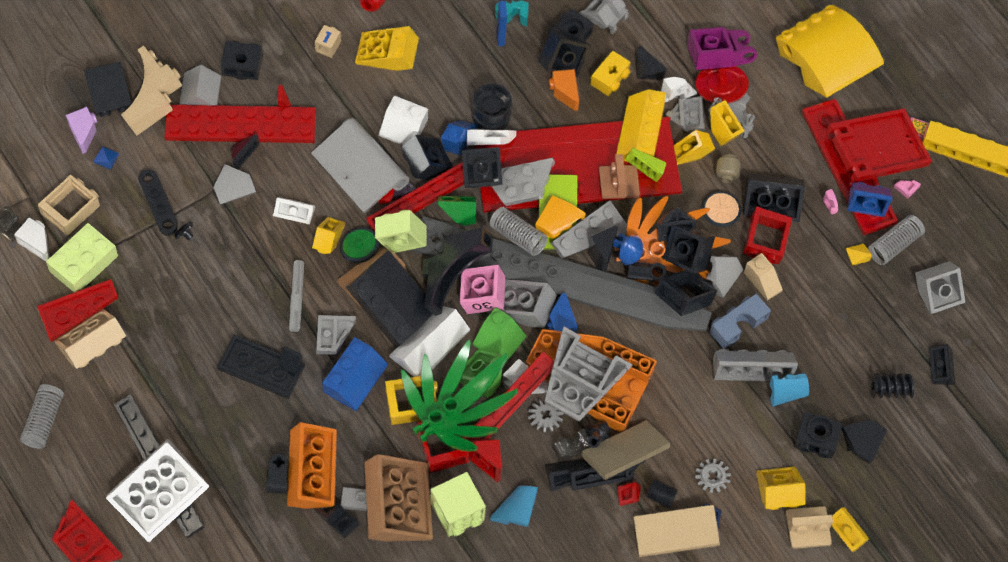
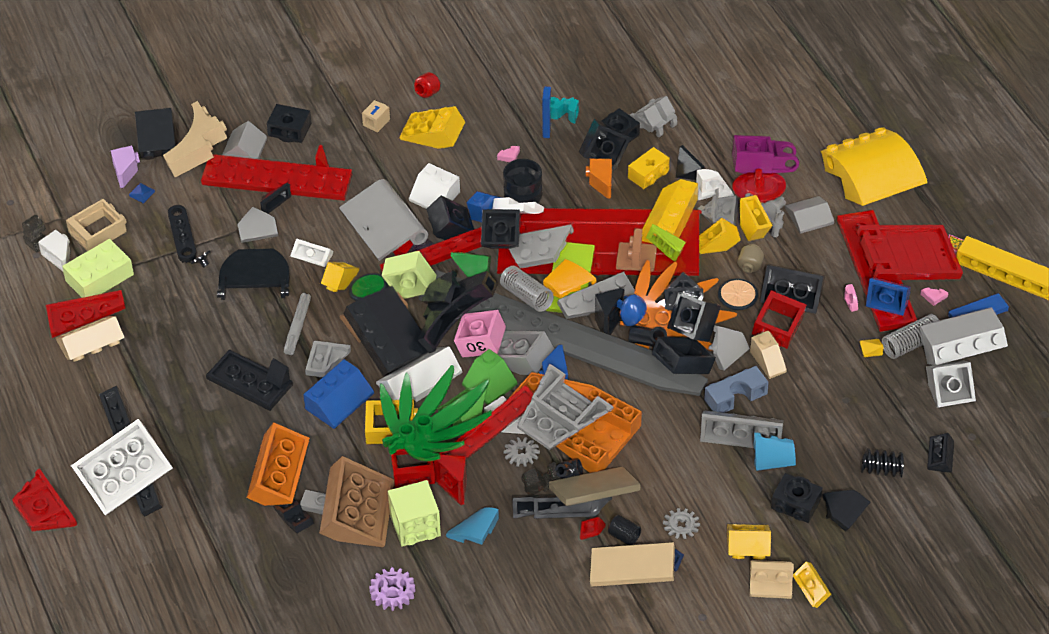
camera: 15 degrees right, 15 degrees down
(39, 442) = (36, 381): light grey piece -> none
(239, 237) = (254, 270): none -> black piece
(278, 477) = (243, 470): black piece -> none
(438, 246) = (441, 289): none -> black slope
(469, 71) = (509, 154): none -> bright pink tile
(774, 107) = (810, 214): none -> light grey slope
(945, 237) = (962, 336): none -> light grey slope
(951, 200) = (994, 301): none -> blue tile

